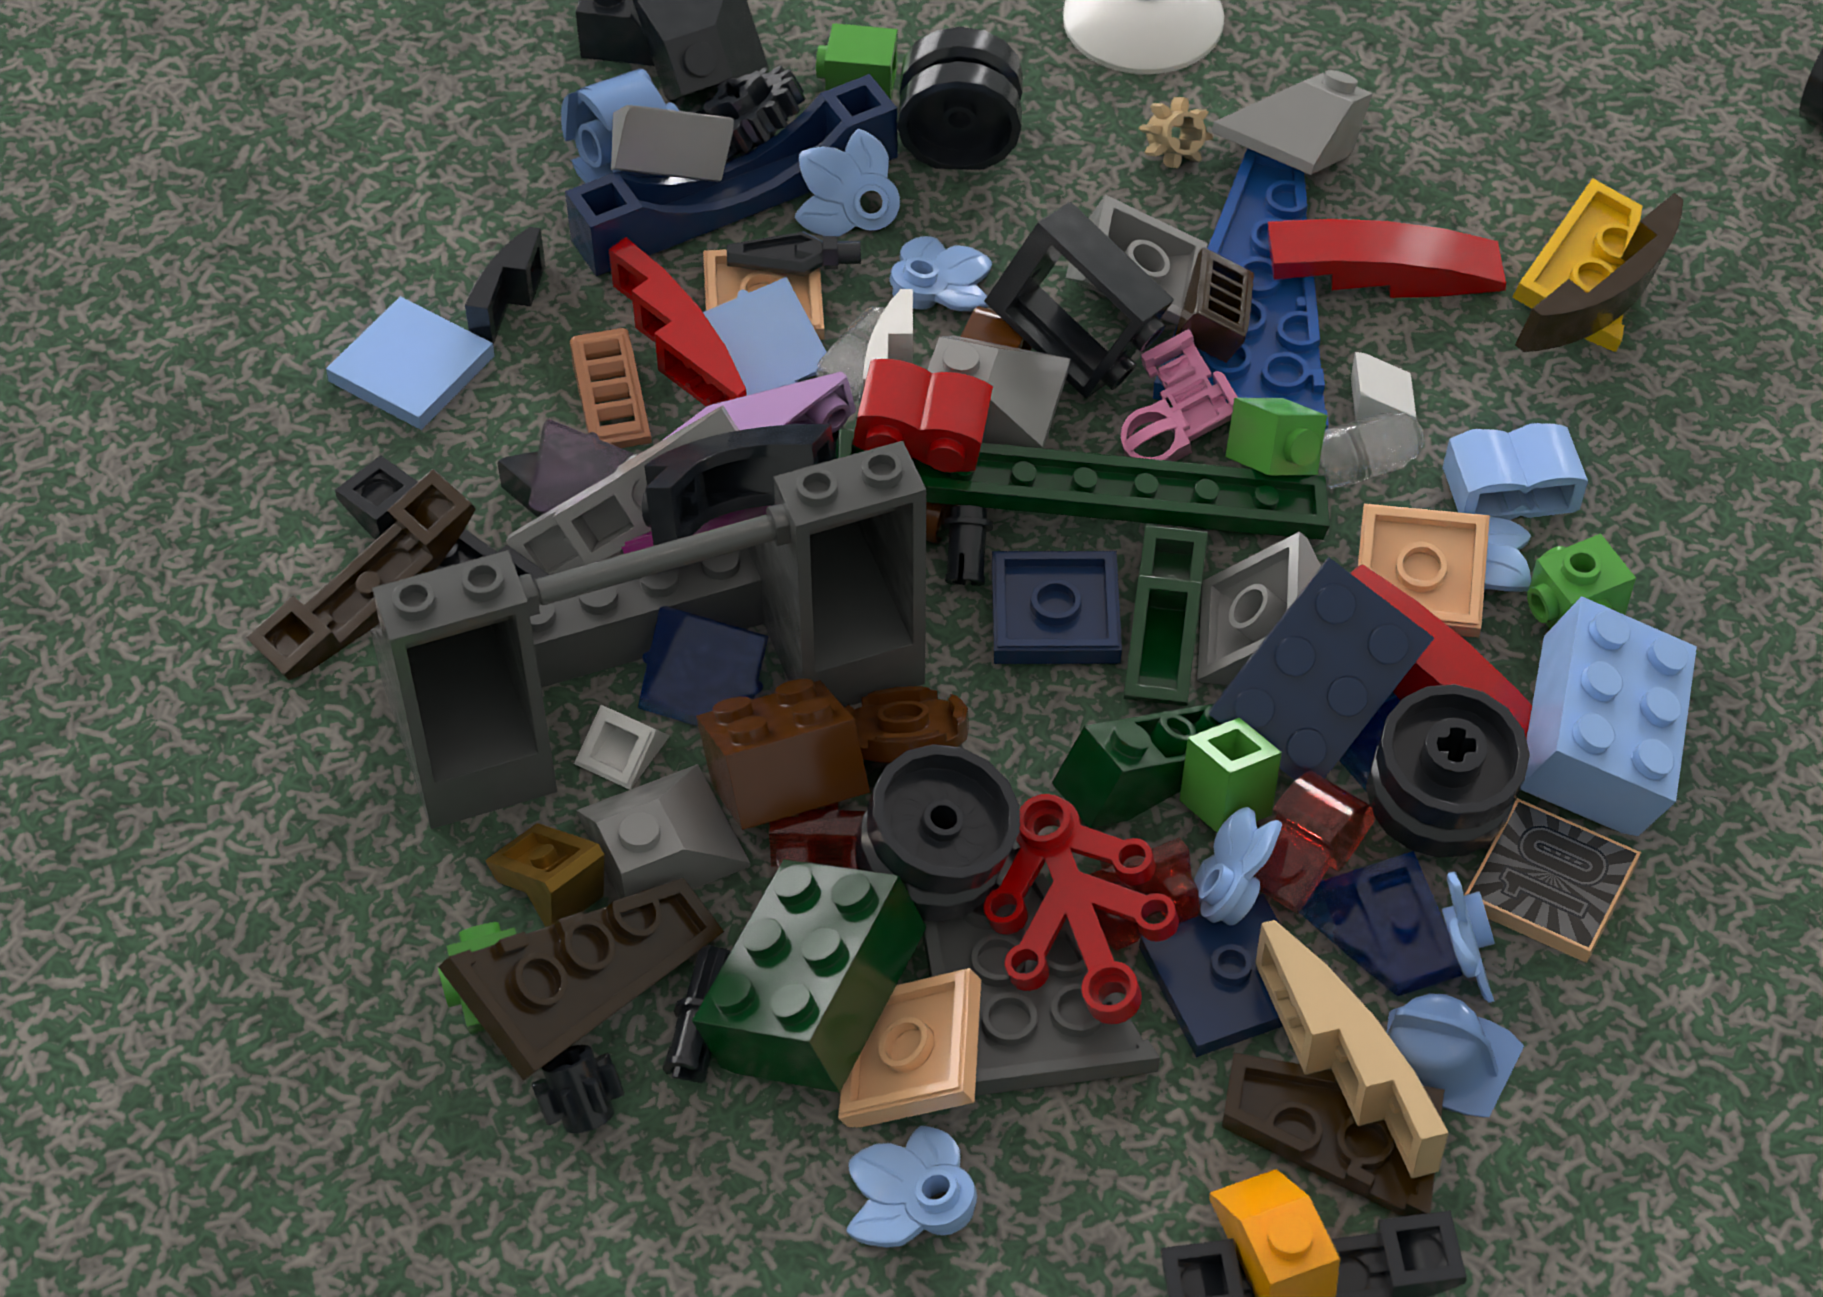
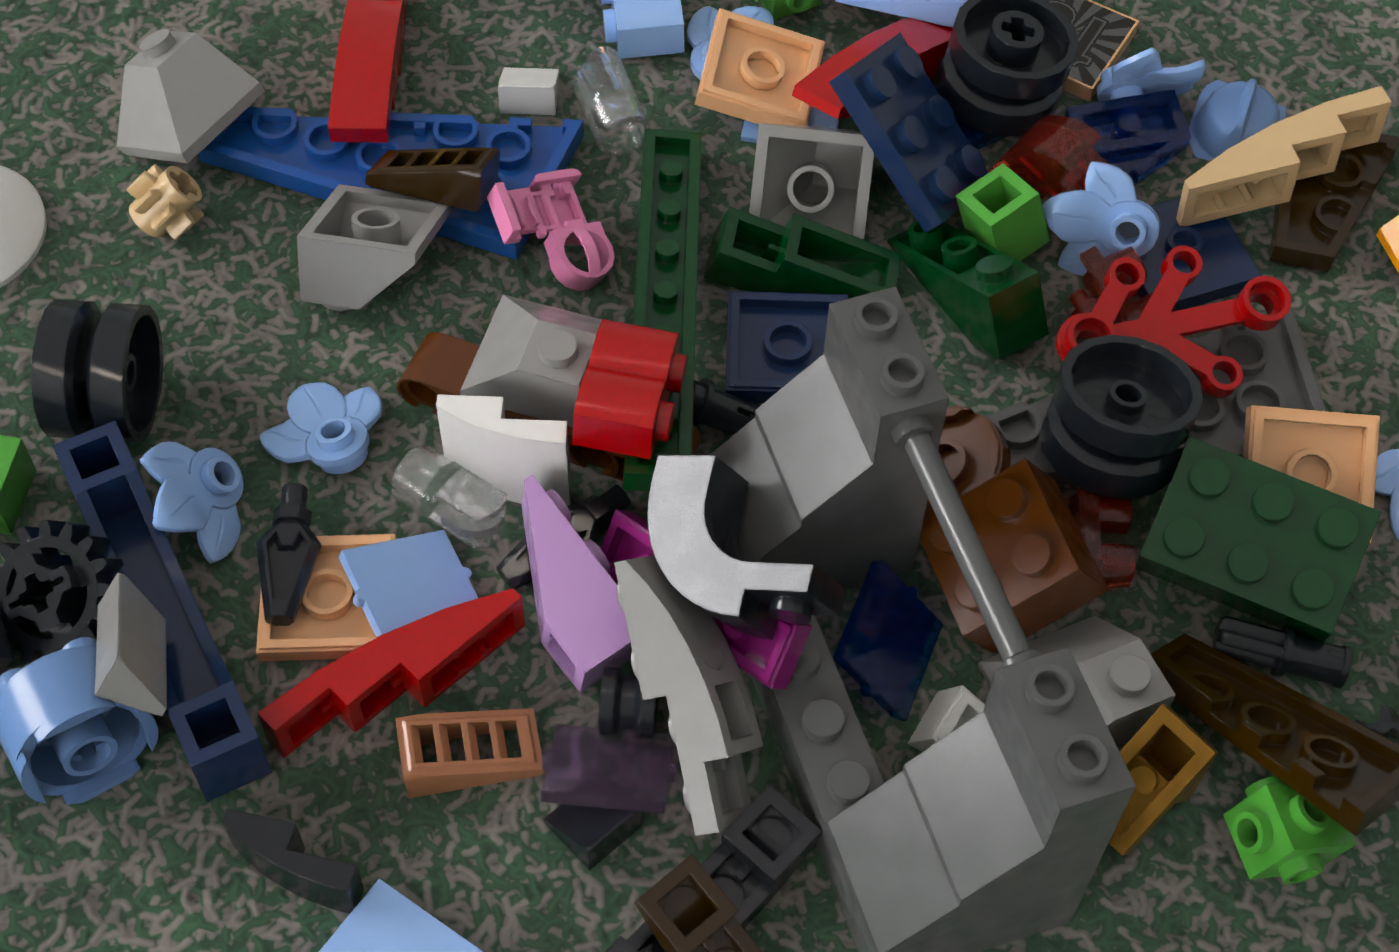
camera: 90 degrees left, 5 degrees up
(1050, 328) = (403, 265): black window -> none
(1276, 436) = (611, 147): bright green brick -> none

